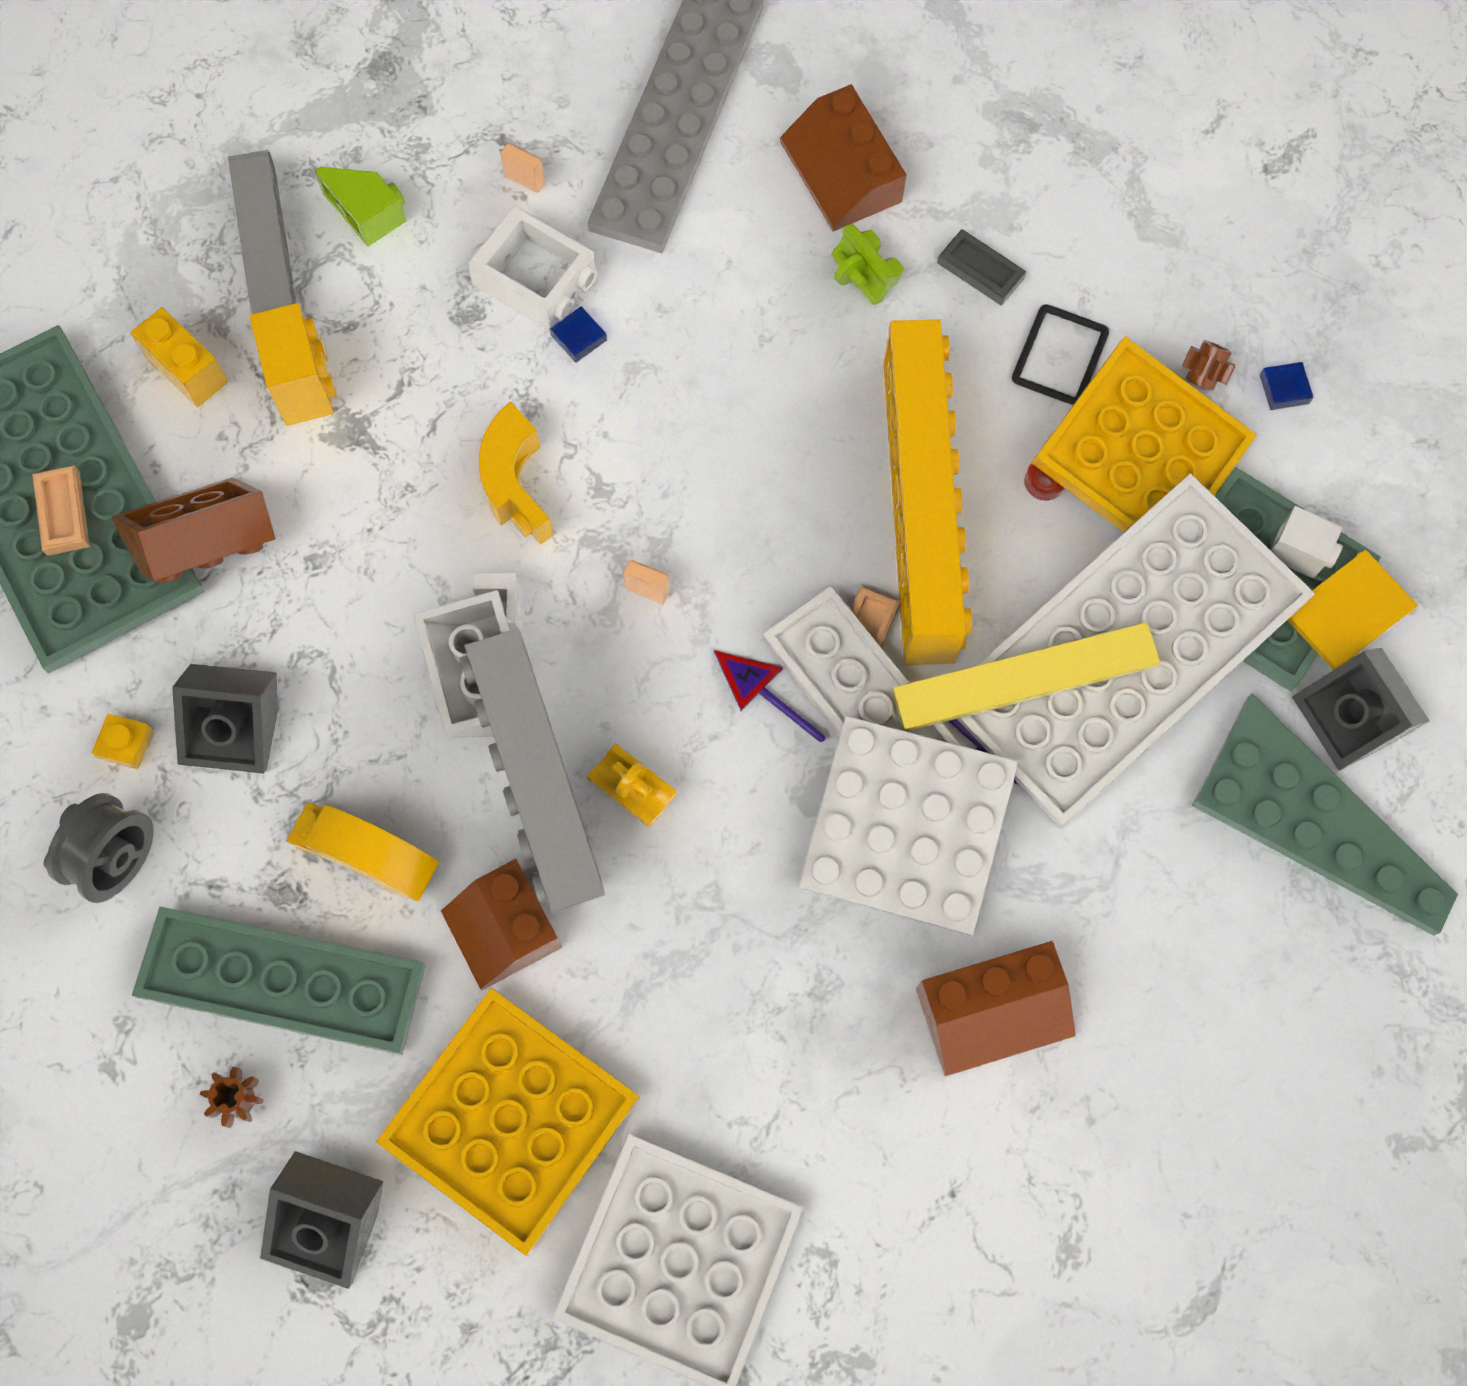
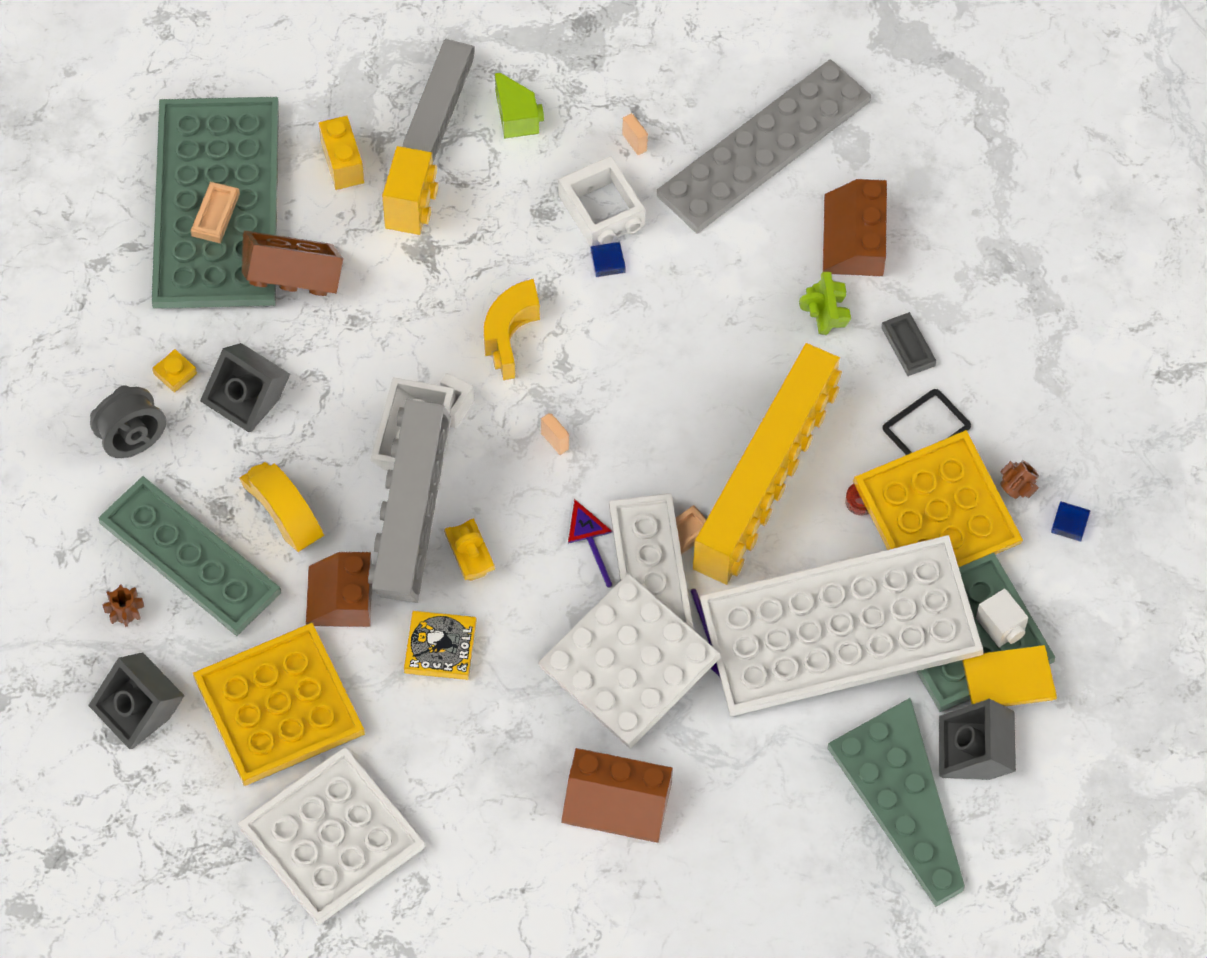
camera: 30 degrees right, 10 degrees down
(664, 926) = (440, 645): none -> tile
(1026, 677) = (759, 607): light yellow tile -> none

